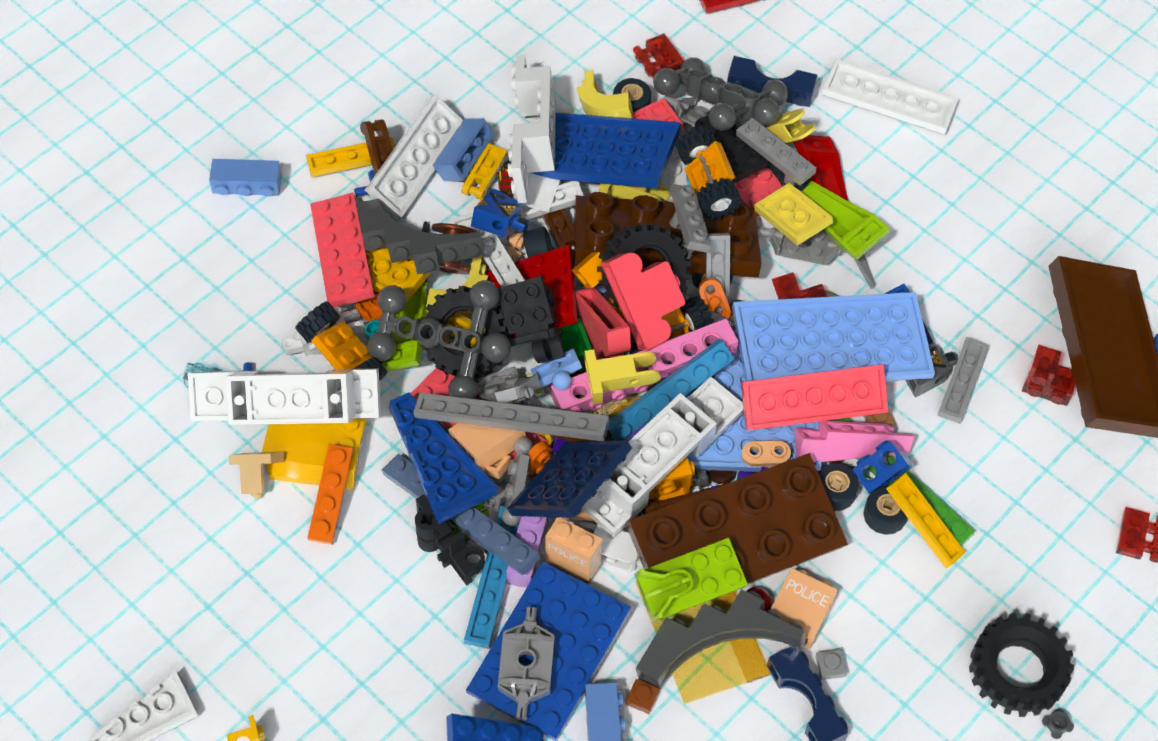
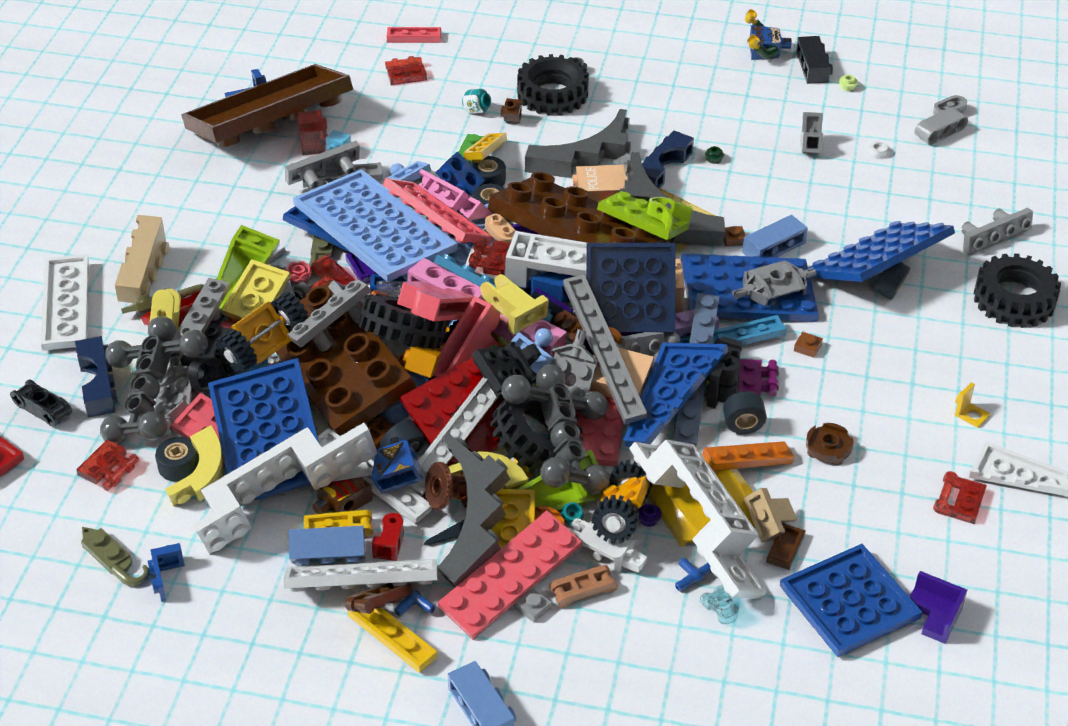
camera: 120 degrees left, 15 degrees down
(69, 539) = (939, 601): none -> dark purple panel
(133, 475) = (850, 599): none -> blue plate
(154, 651) = (967, 501): none -> clear red plate
(226, 475) = (786, 547): none -> reddish brown tile
(298, 298) = (583, 585): none -> nougat plate
(301, 593) = (832, 453): none -> reddish brown plate
(308, 259) = (533, 605): none -> light grey plate
(378, 520) = (744, 412): none -> black wheel
(431, 572) = (751, 373): none -> magenta plate
(437, 655) = (808, 344): none -> dark orange plate
(444, 198) = (389, 544): none -> red leg
(517, 45) = (164, 559): none -> blue bracket
(562, 30) = (111, 555): none -> olive plate
(711, 408) = (496, 256): none -> clear red plate
(761, 38) = (41, 403): none -> black piece
(794, 266) = (301, 290): none -> dark grey plate
(827, 271) = (299, 272): none -> coral plate
(848, 162) = (144, 302): none -> olive plate
(867, 632) = (563, 159): none -> dark grey arch
(907, 161) = (142, 259): none -> tan wedge
(929, 439) = (410, 172): none -> light blue plate
(977, 344) = (312, 166): none -> light grey plate
(989, 593) = (512, 110): none -> reddish brown plate
(1018, 397) = (337, 139): none -> medium azure plate
(1030, 567) = (476, 101): none -> teal head

